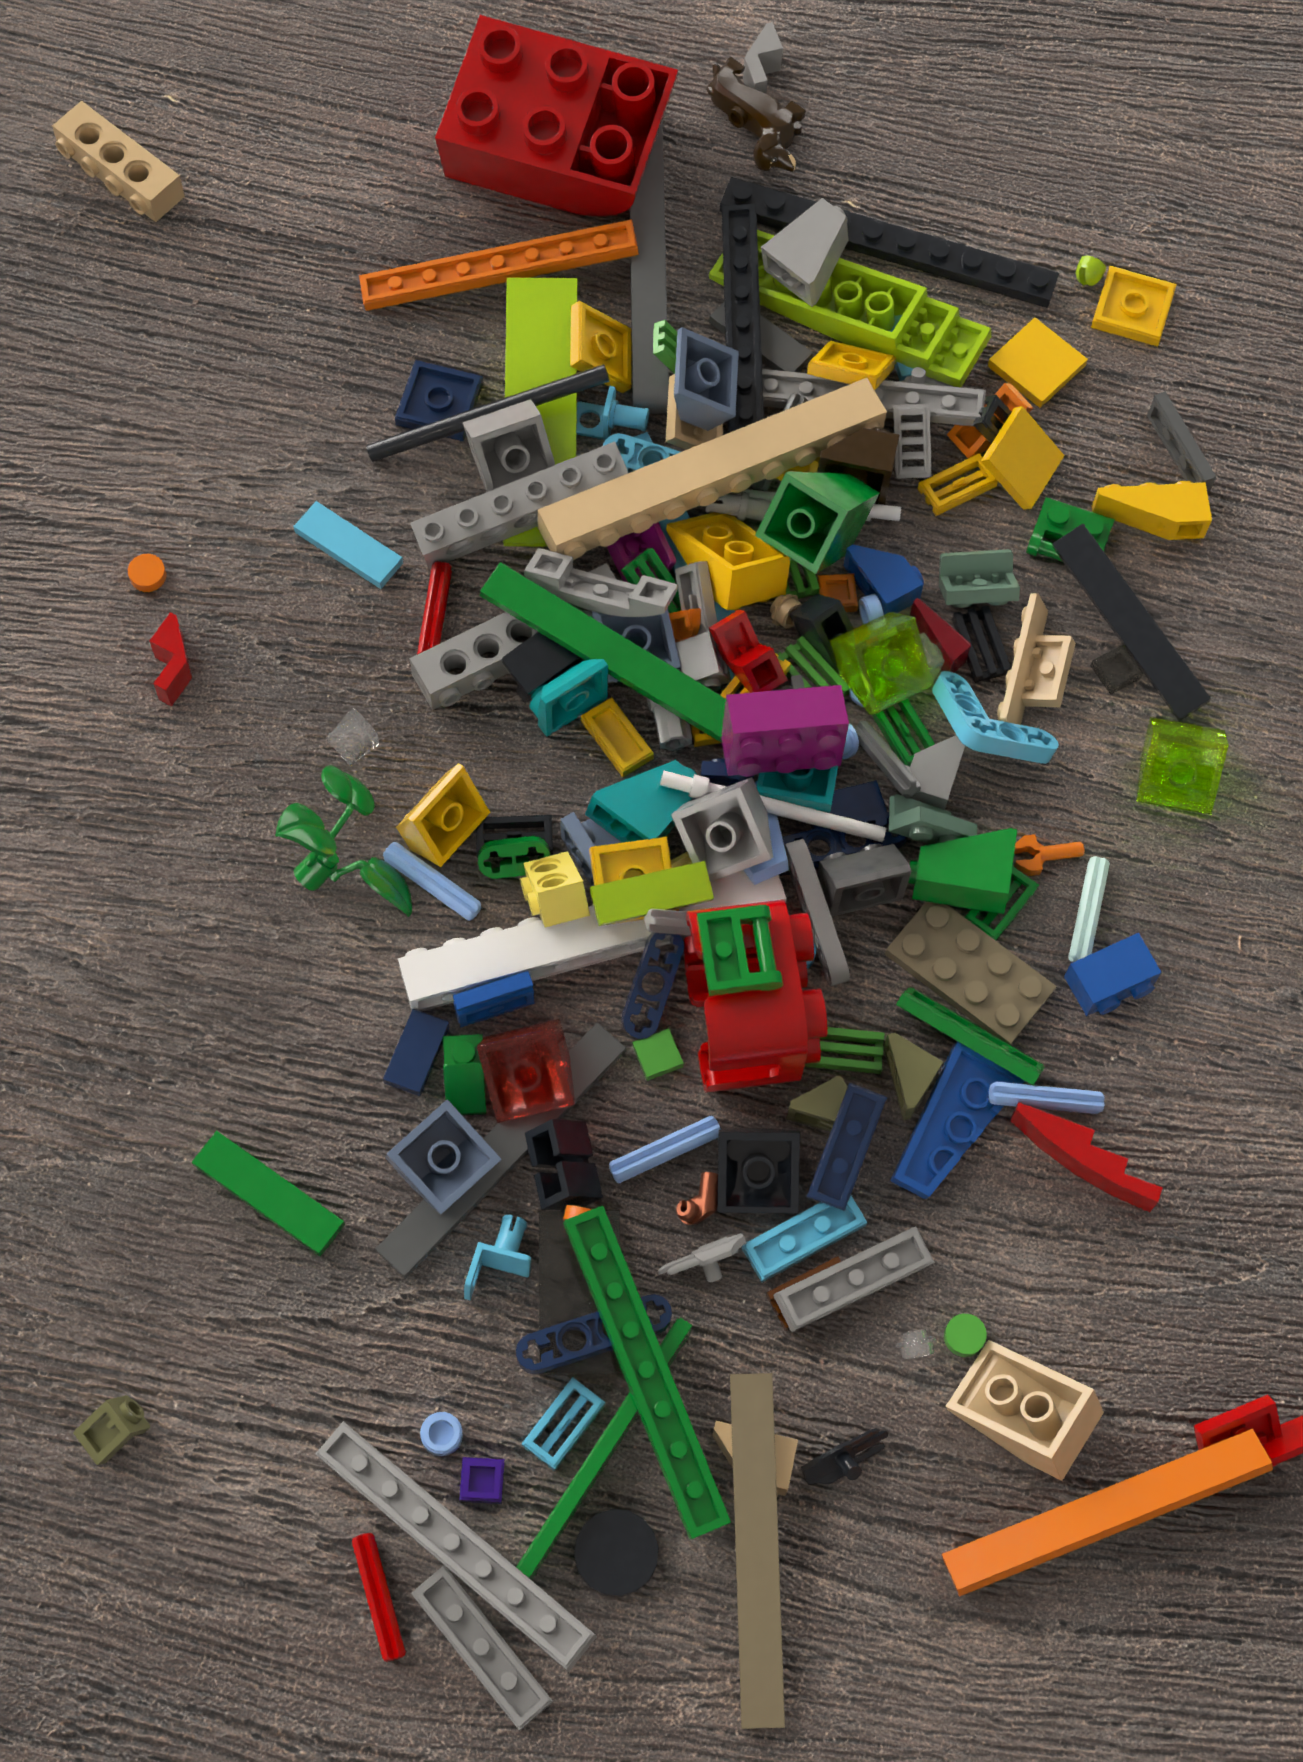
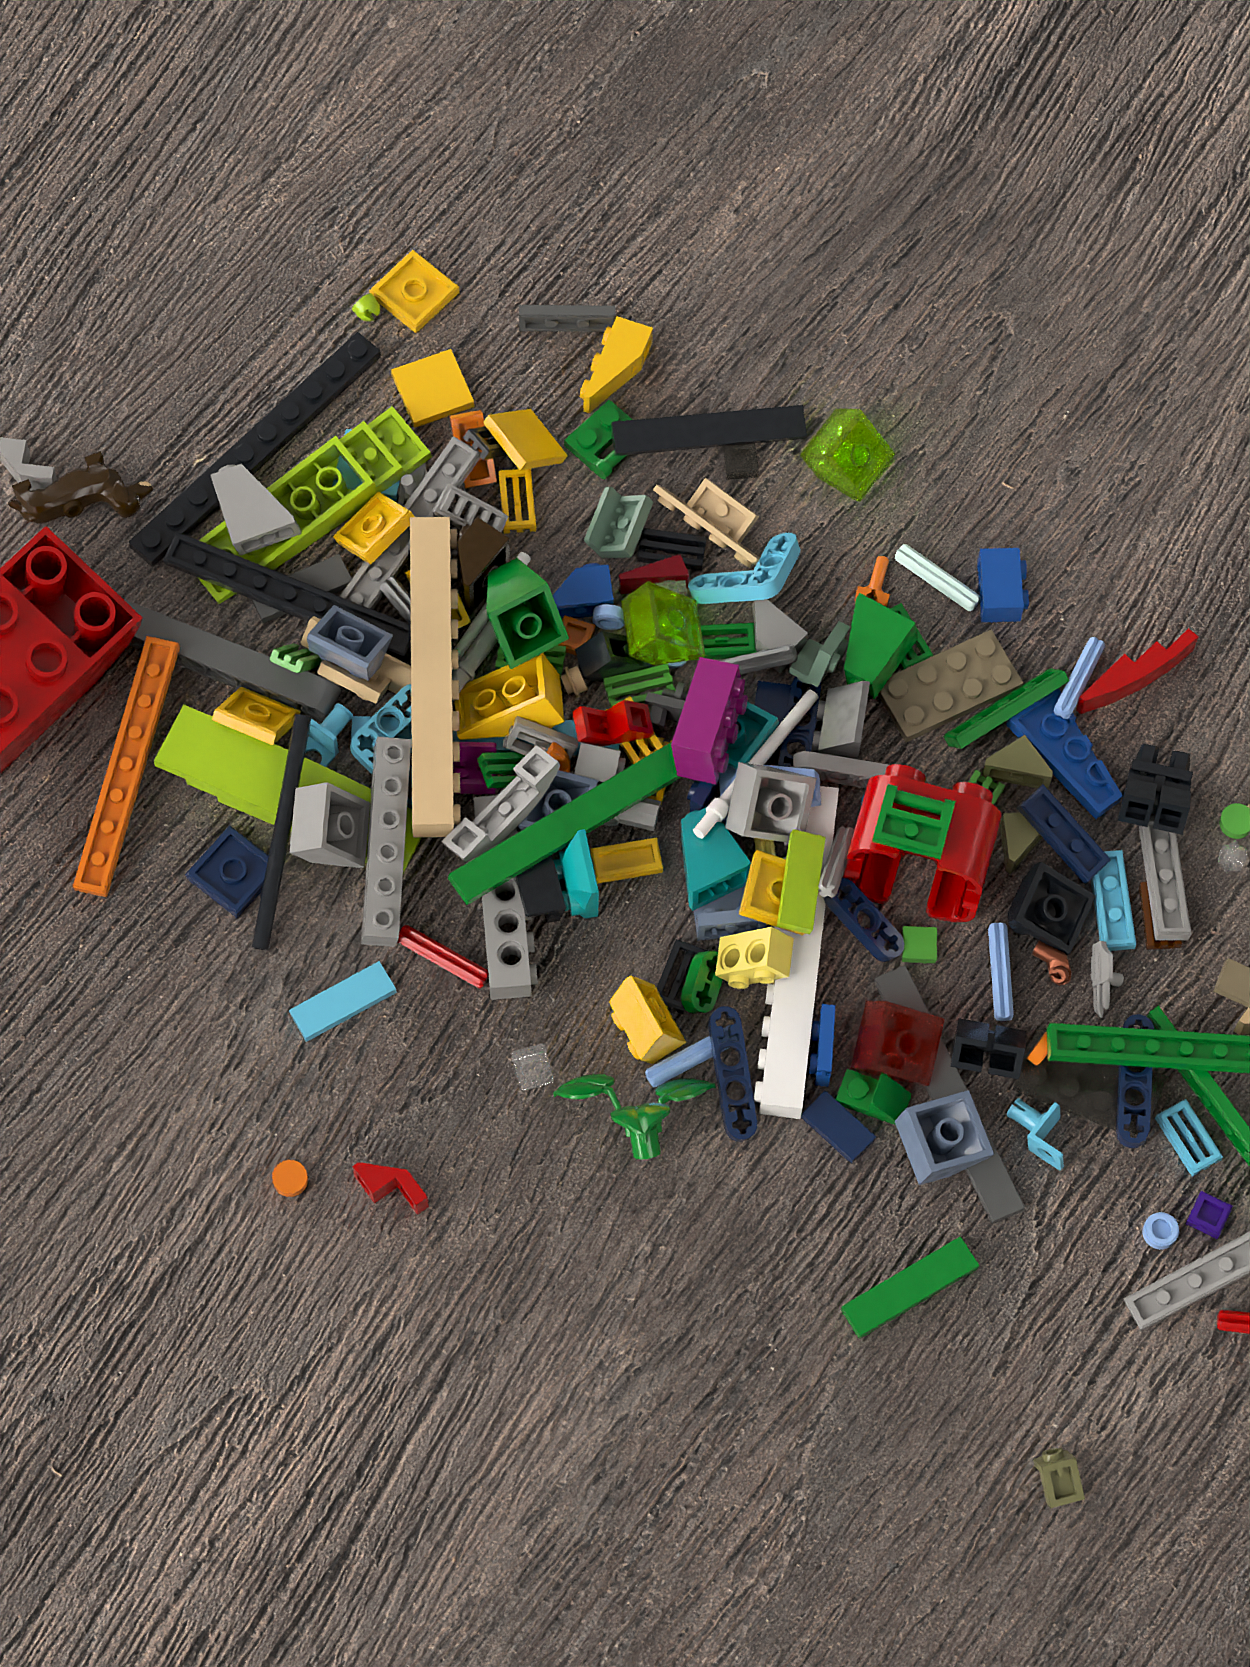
camera: 65 degrees left, 0 degrees up
(427, 928) = (737, 1073): none -> dark blue beam
(951, 1229) = (1157, 791): none -> black hips

